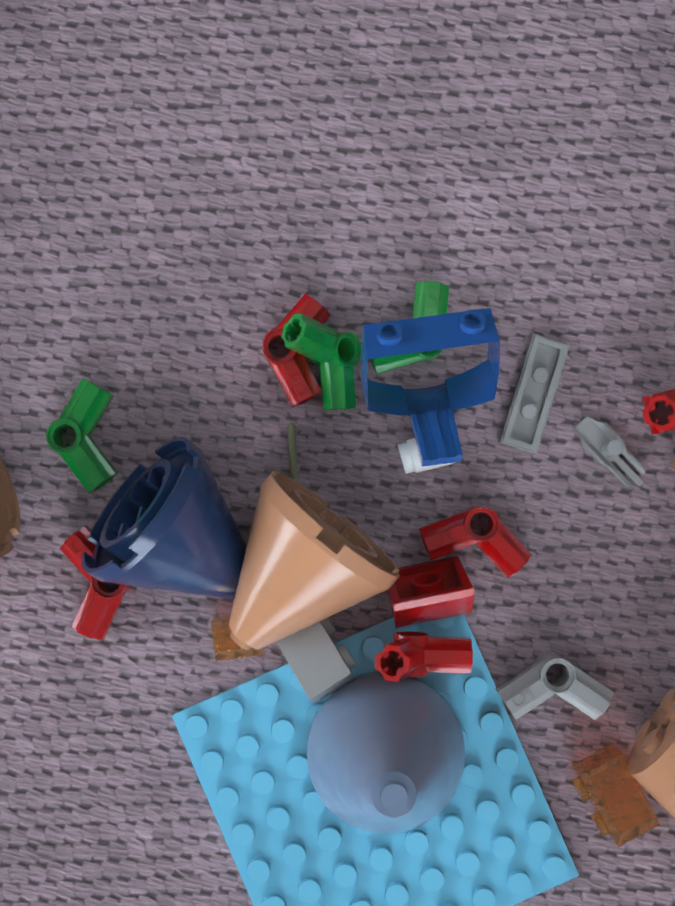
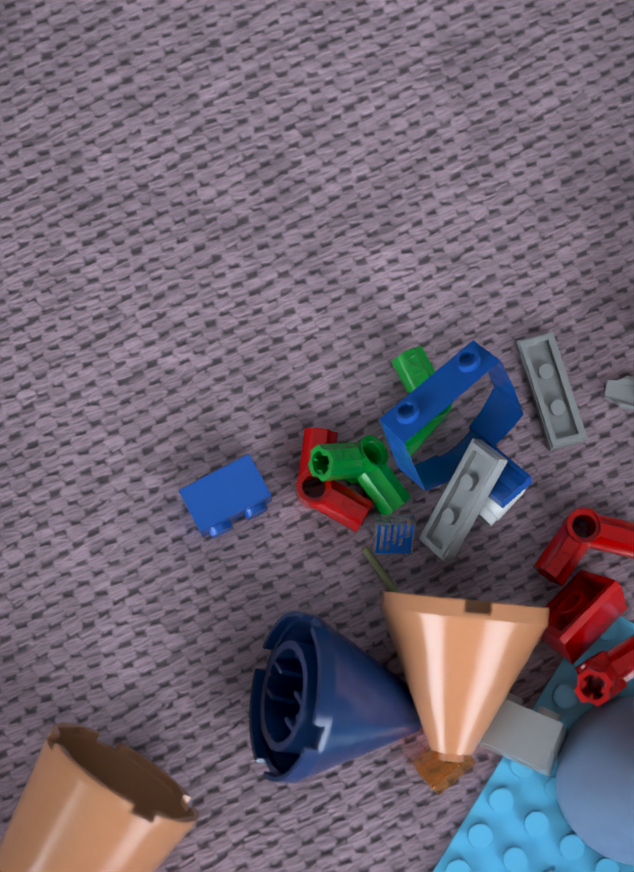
camera: 30 degrees left, 10 degrees down
(84, 455) = (179, 656): green piece -> none
(100, 601) = (301, 814): red piece -> none
(203, 308) = (226, 496): none -> blue brick
(321, 429) = (393, 534): none -> tile
(395, 437) = (462, 499): none -> light grey tile

